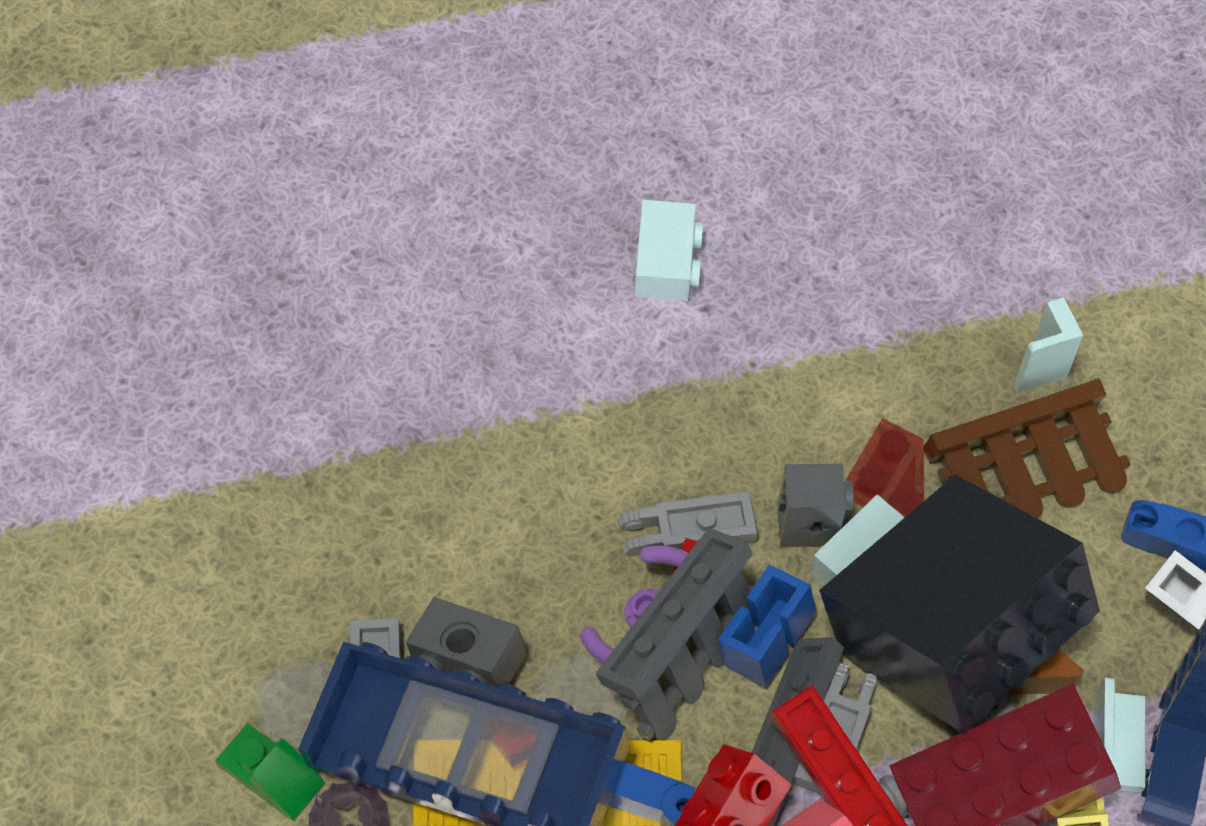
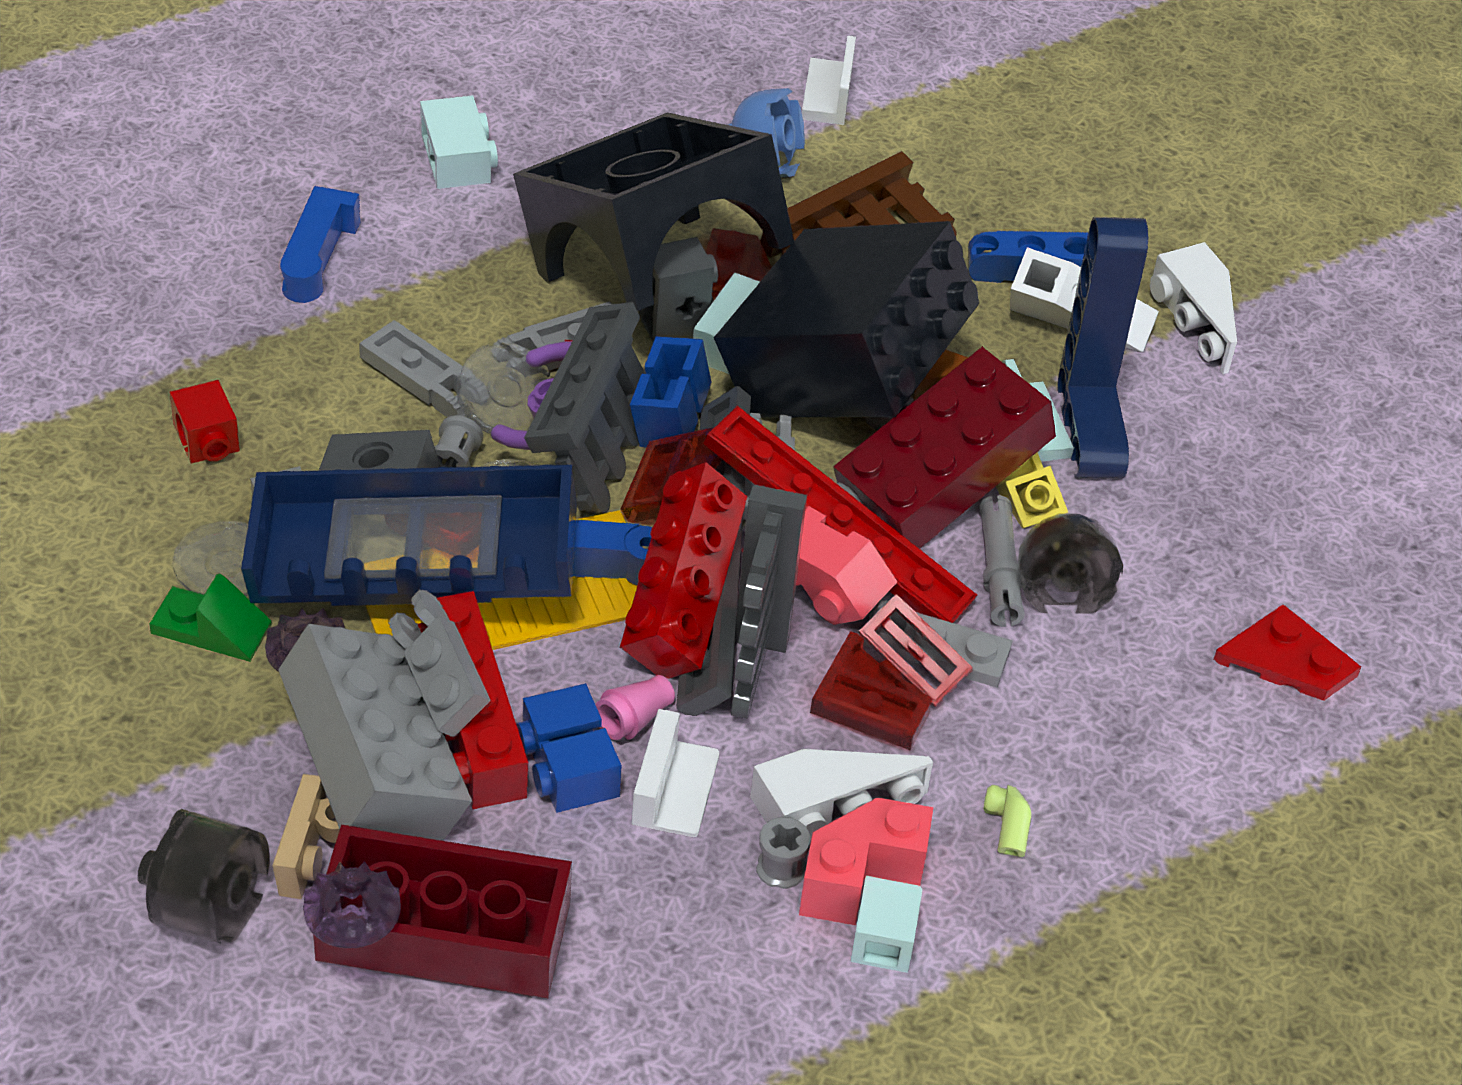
camera: 20 degrees left, 15 degrees down
(328, 542) = (205, 421): none -> red brick
(493, 344) = (314, 239): none -> blue leg
(546, 524) = (414, 366): none -> light grey hinge
(548, 630) = (451, 444): none -> light grey bush
(609, 572) = (497, 386): none -> clear tile
(736, 716) = (659, 461): none -> clear red wing
(811, 392) = (639, 184): none -> black piece
(971, 310) = (774, 114): none -> medium blue cylinder
(1053, 348) = (849, 135): light aqua panel -> none
(1061, 259) = (828, 87): none -> white panel

